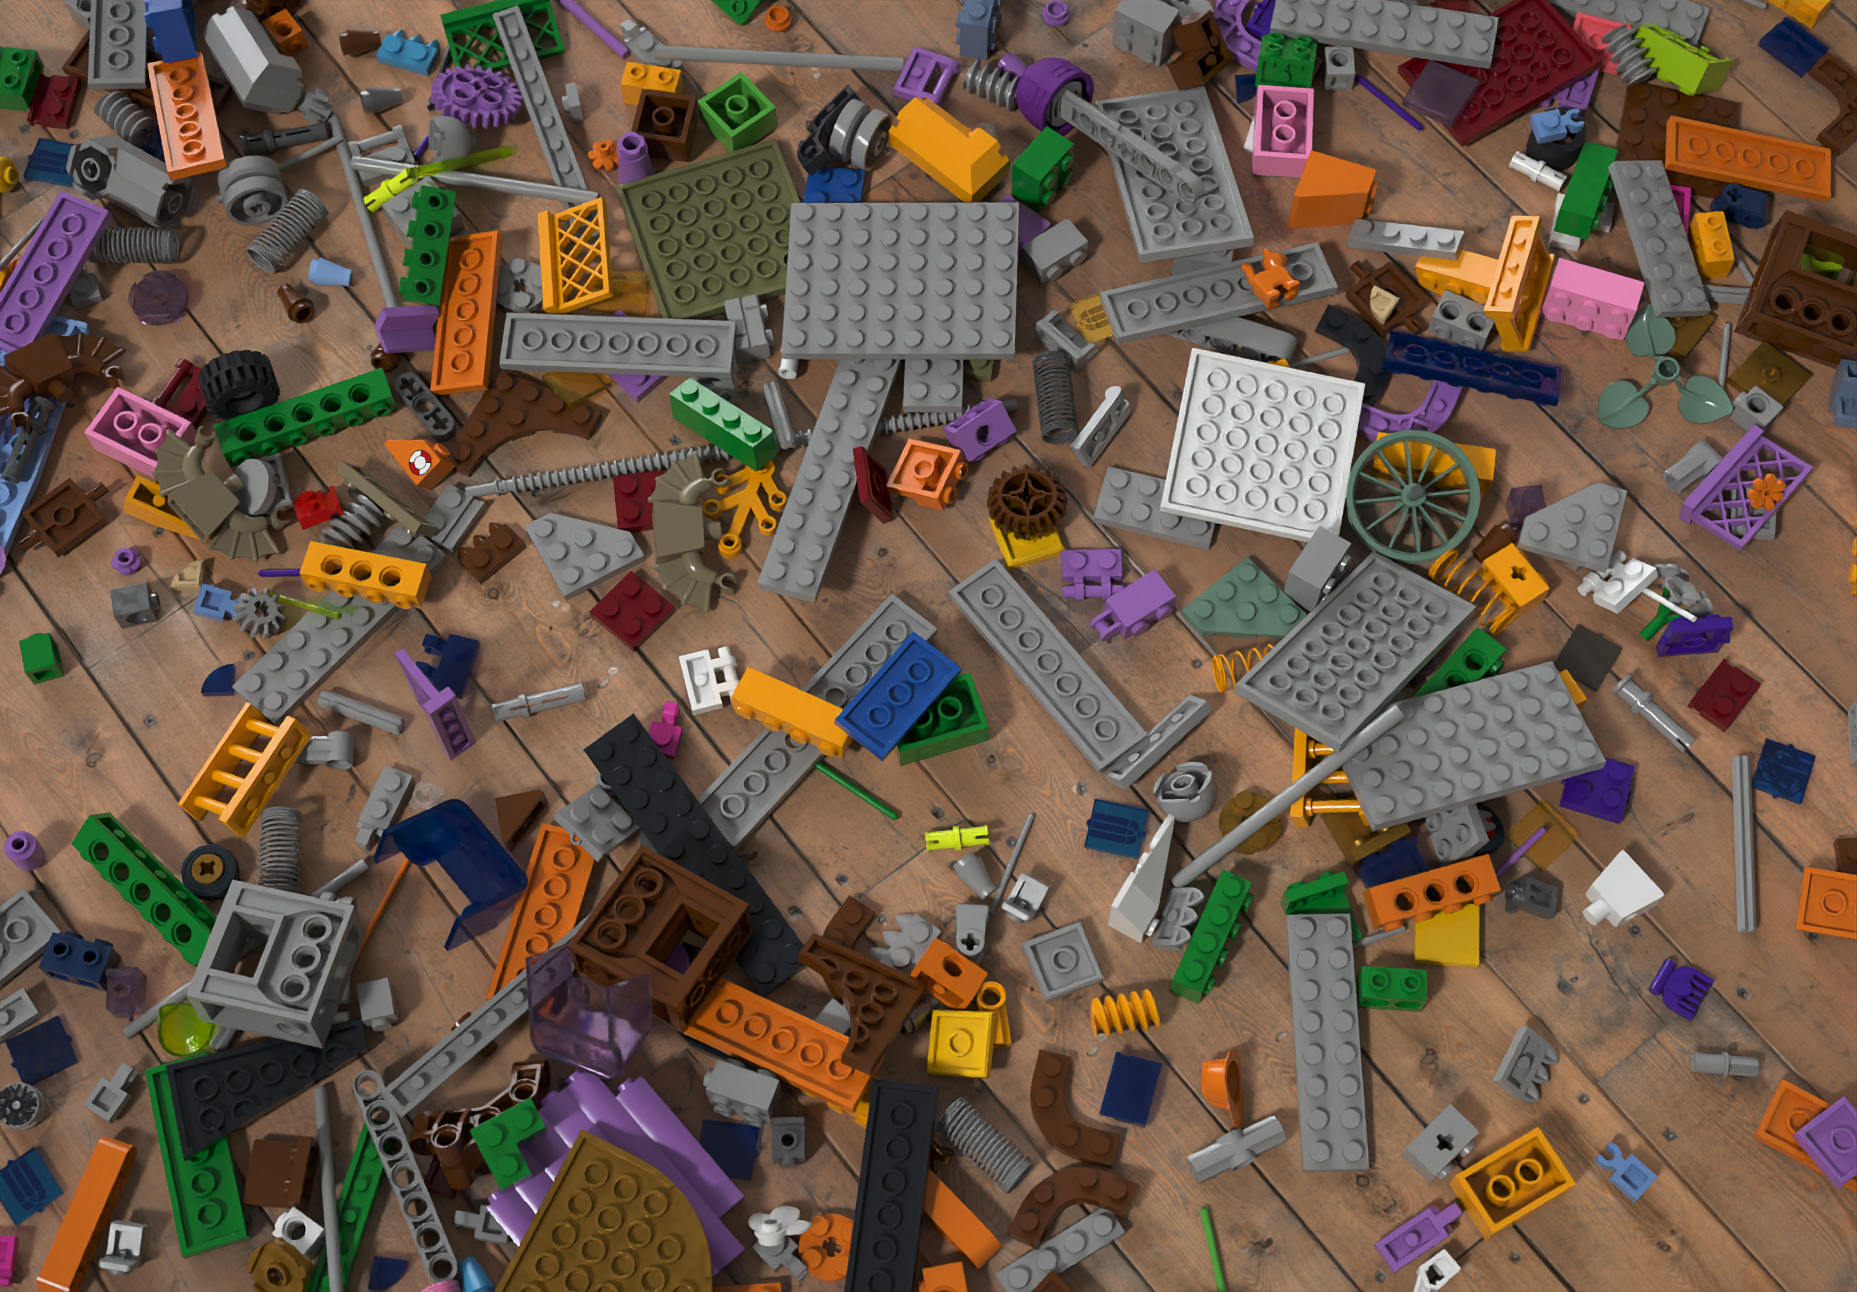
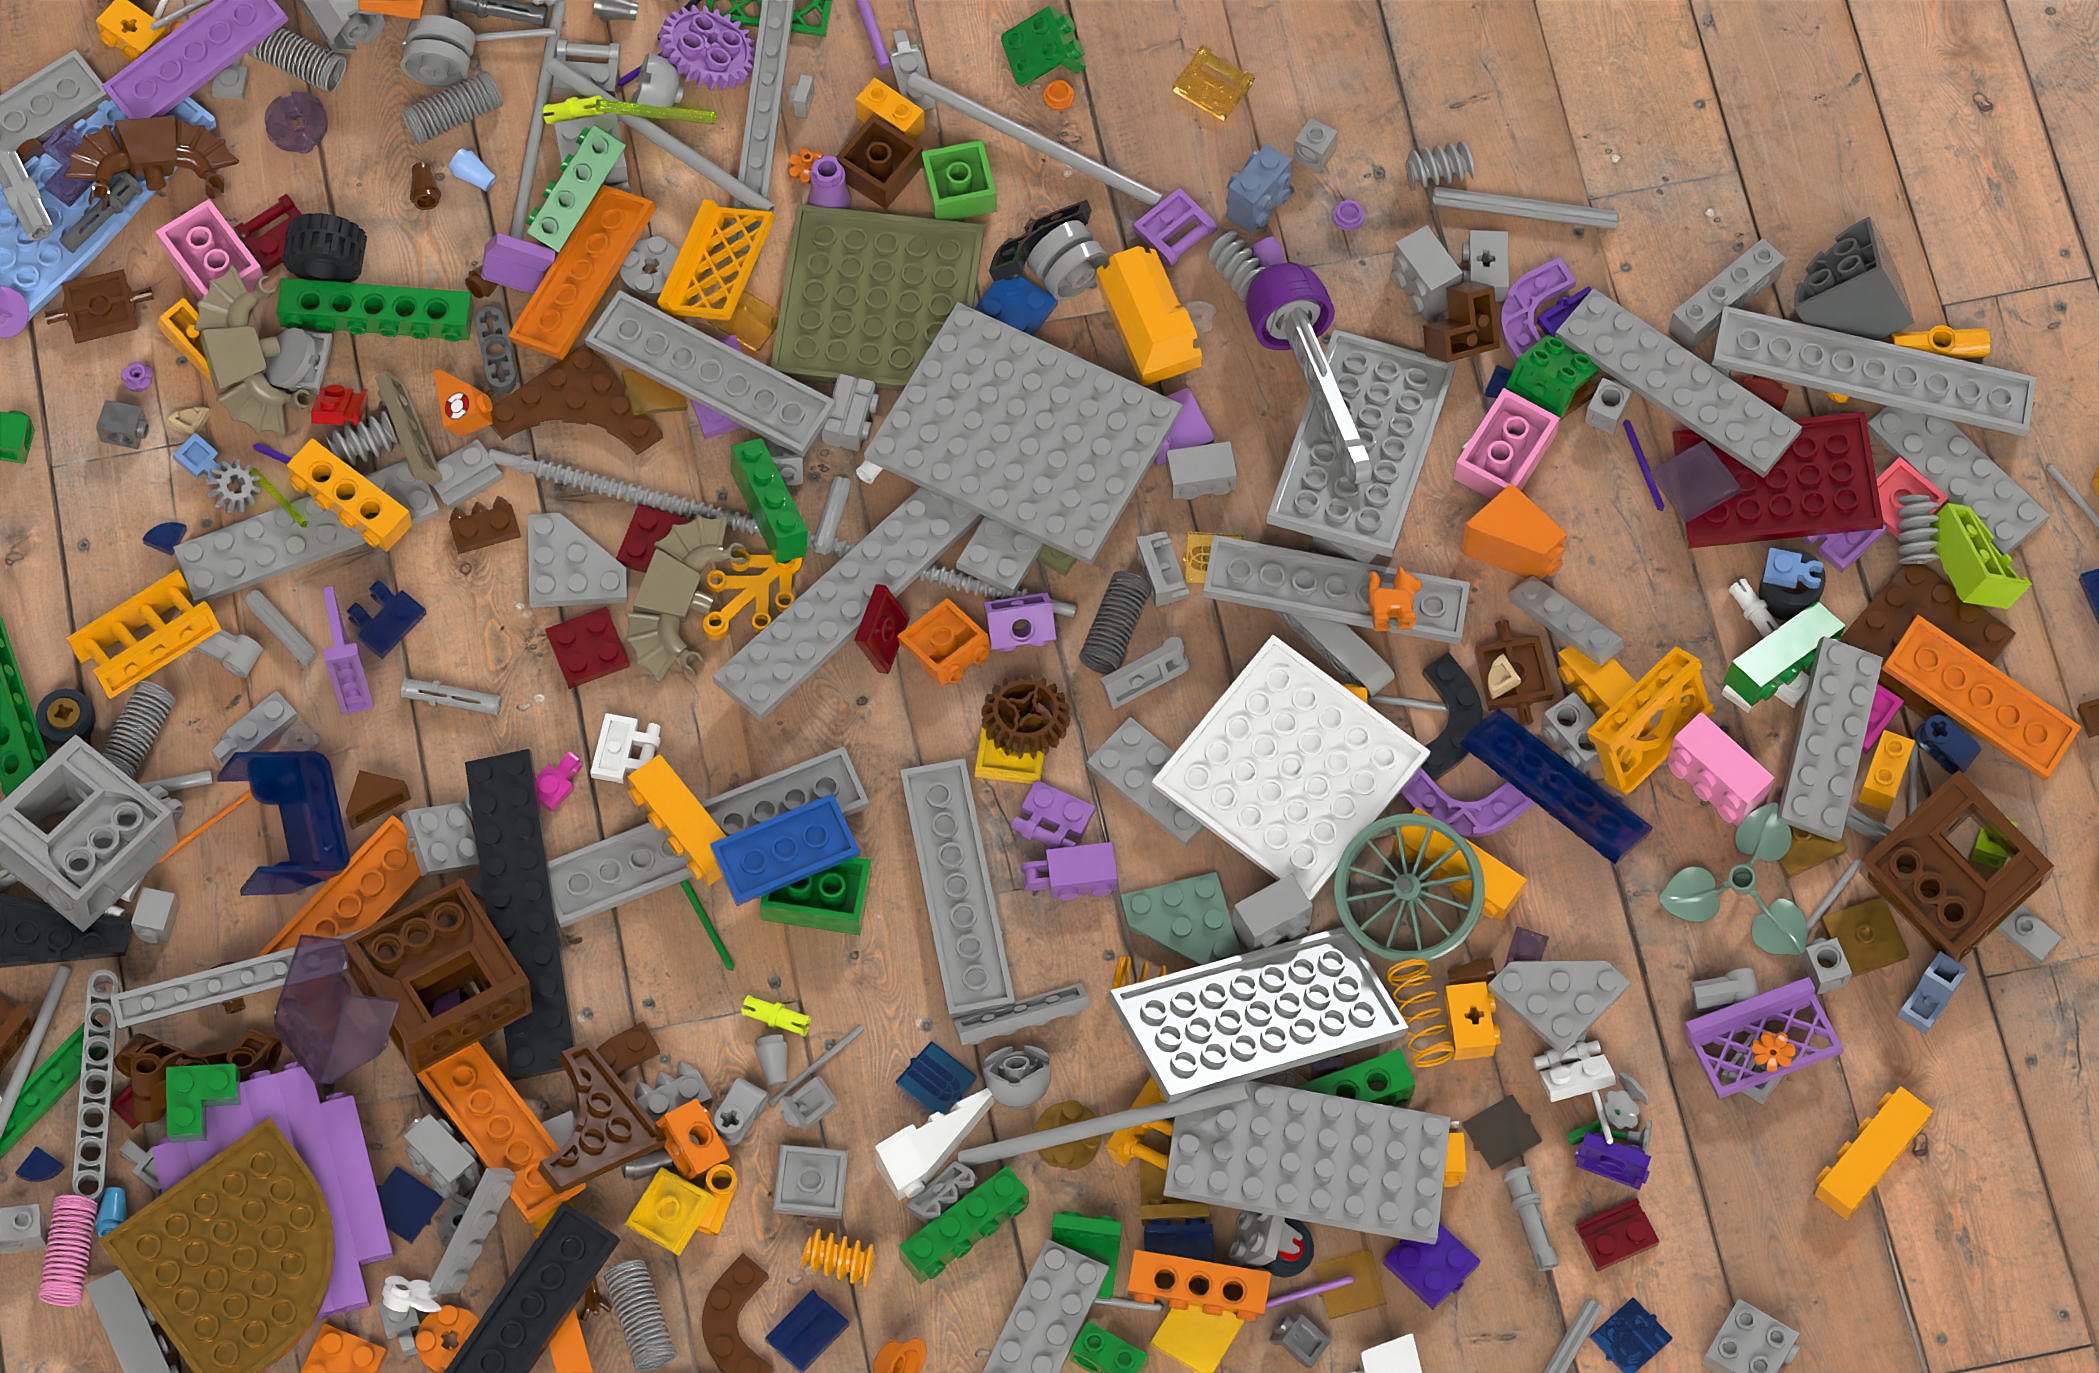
camera: 25 degrees right, 0 degrees up
(807, 1140) = (472, 1230): none -> light grey plate
(1042, 169) = (1233, 379): green brick -> none

